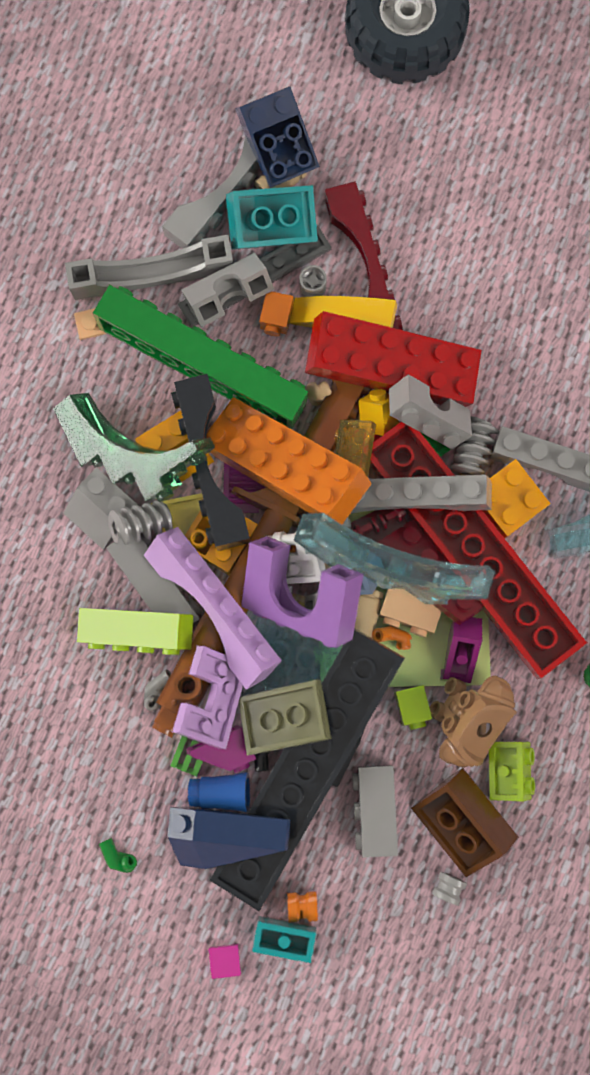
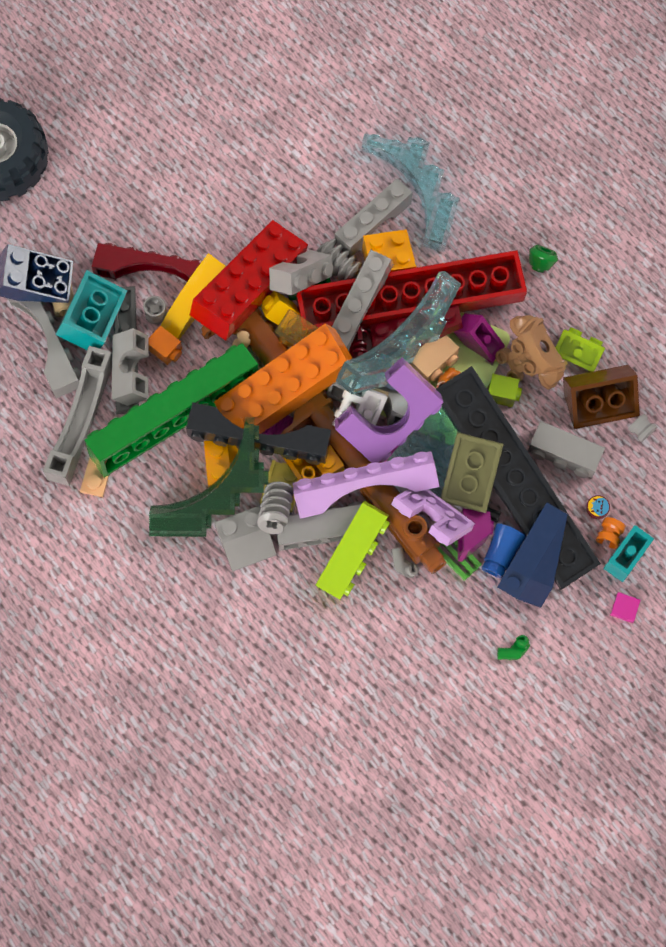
camera: 70 degrees left, 10 degrees down
(328, 877) = (598, 507): none -> tile

